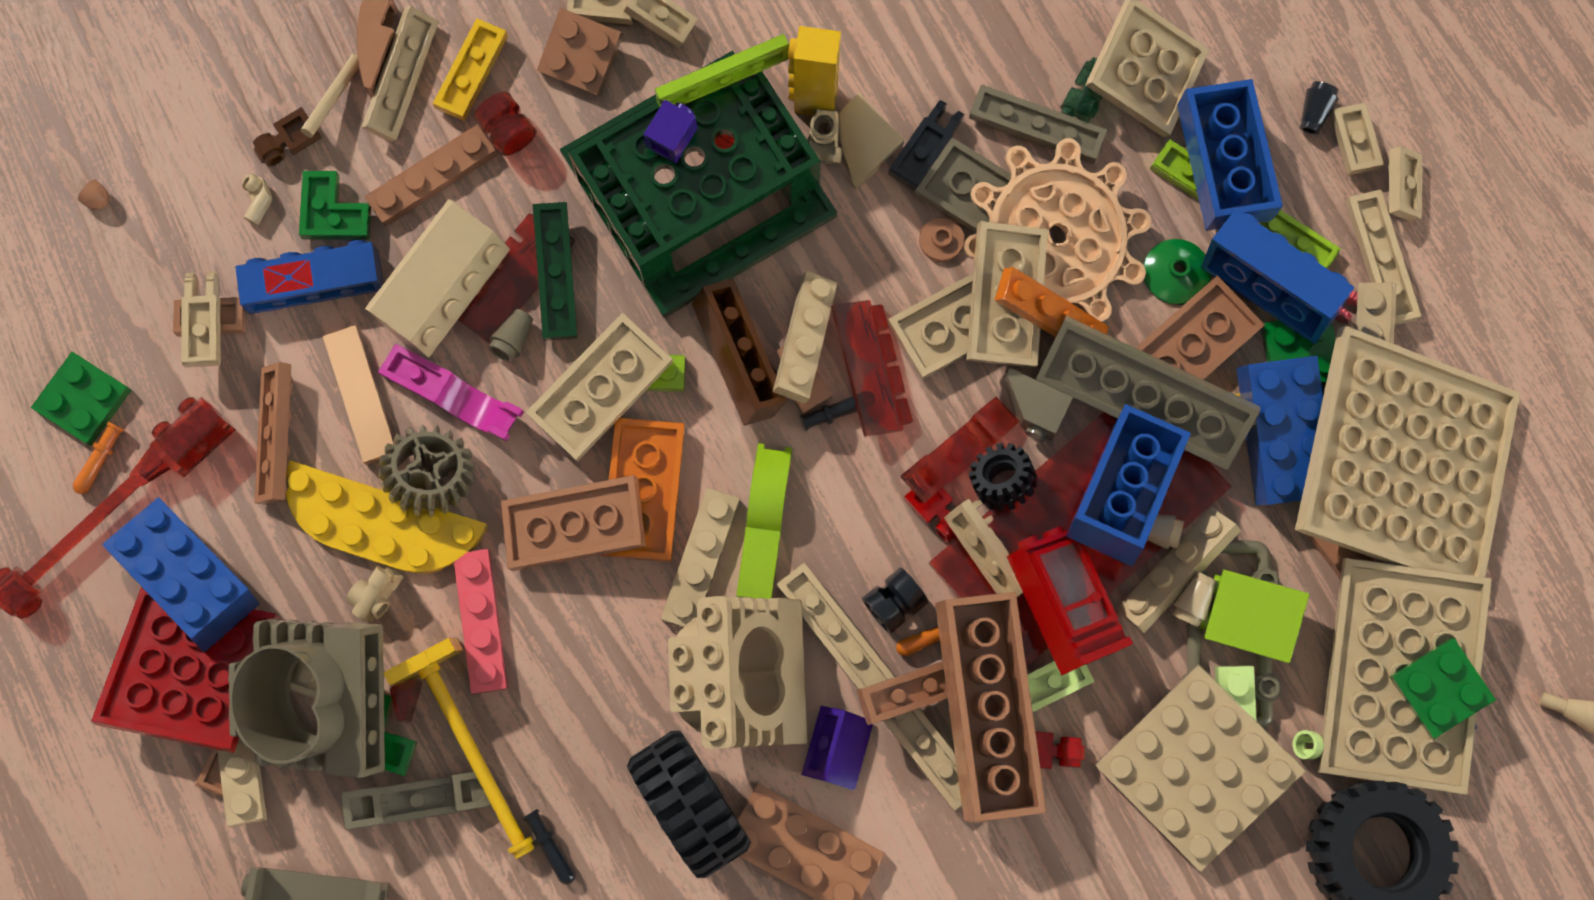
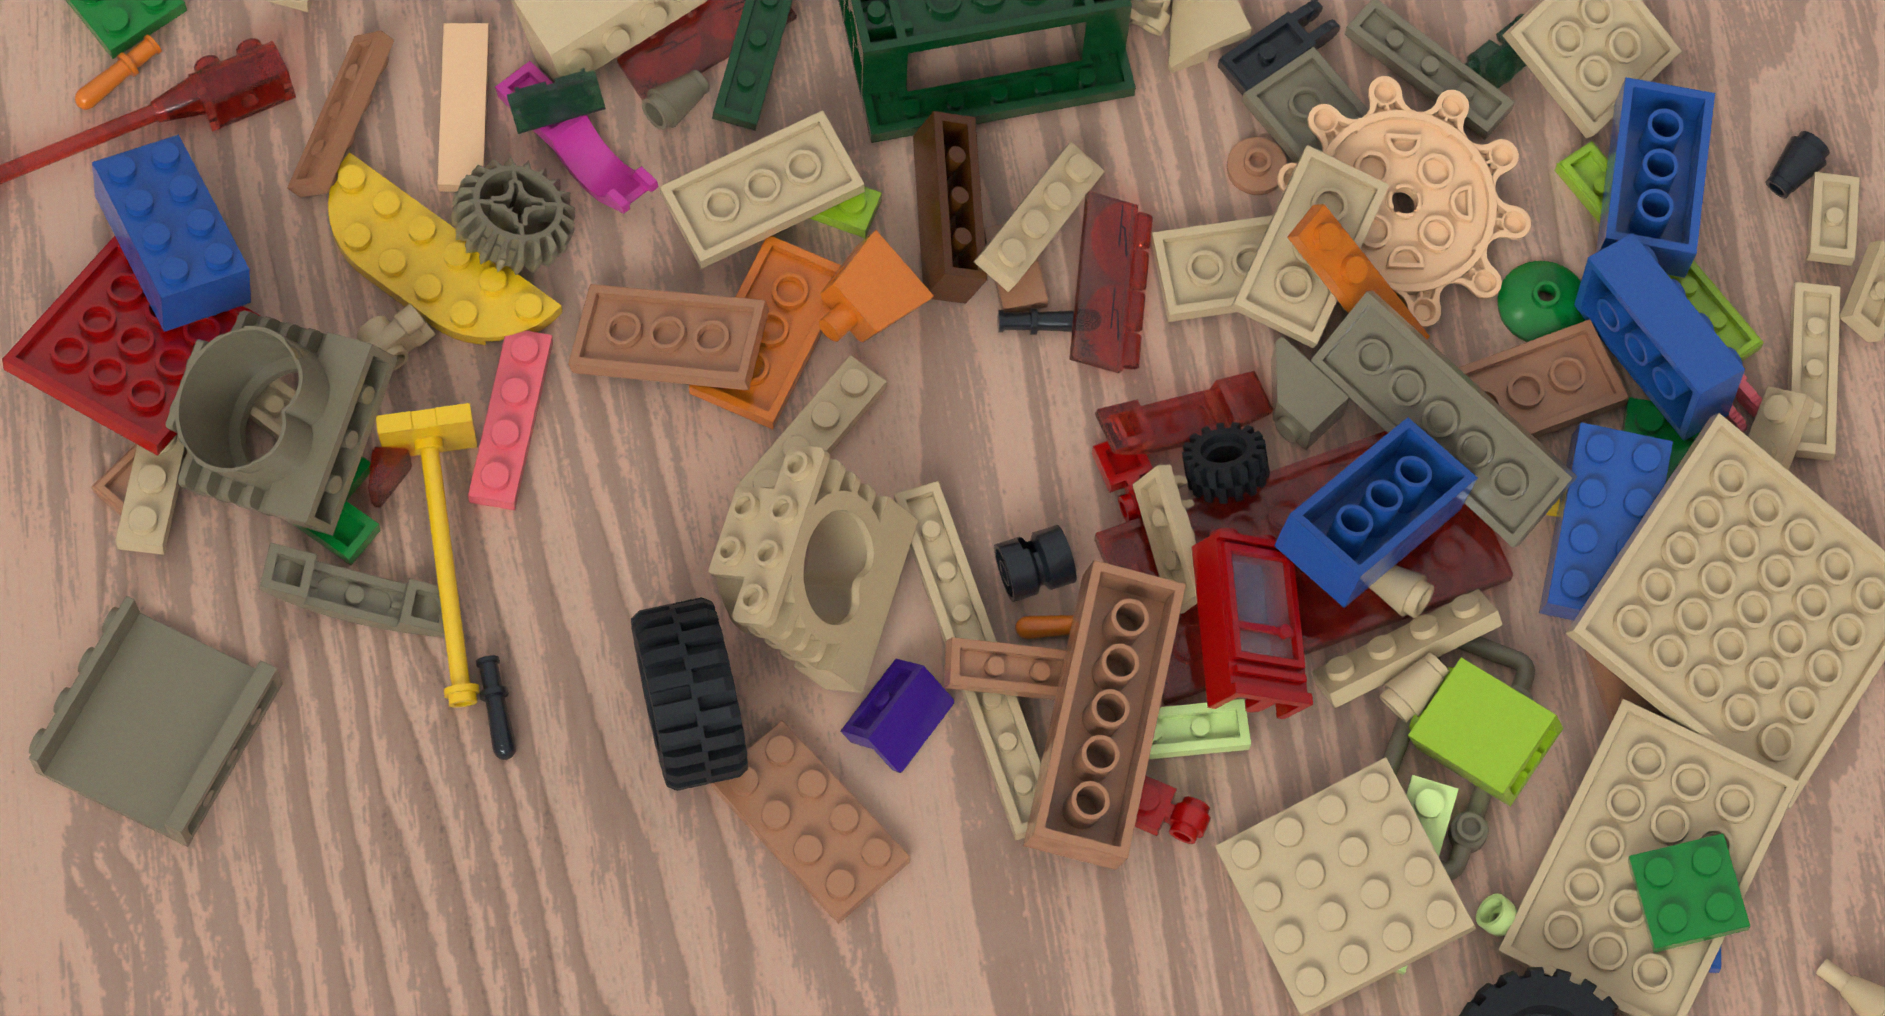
camera: 15 degrees right, 10 degrees down
(426, 372) = (556, 102): none -> clear green hinge
(705, 438) = (870, 291): none -> orange torso
(764, 523) = (910, 412): lime piece -> none

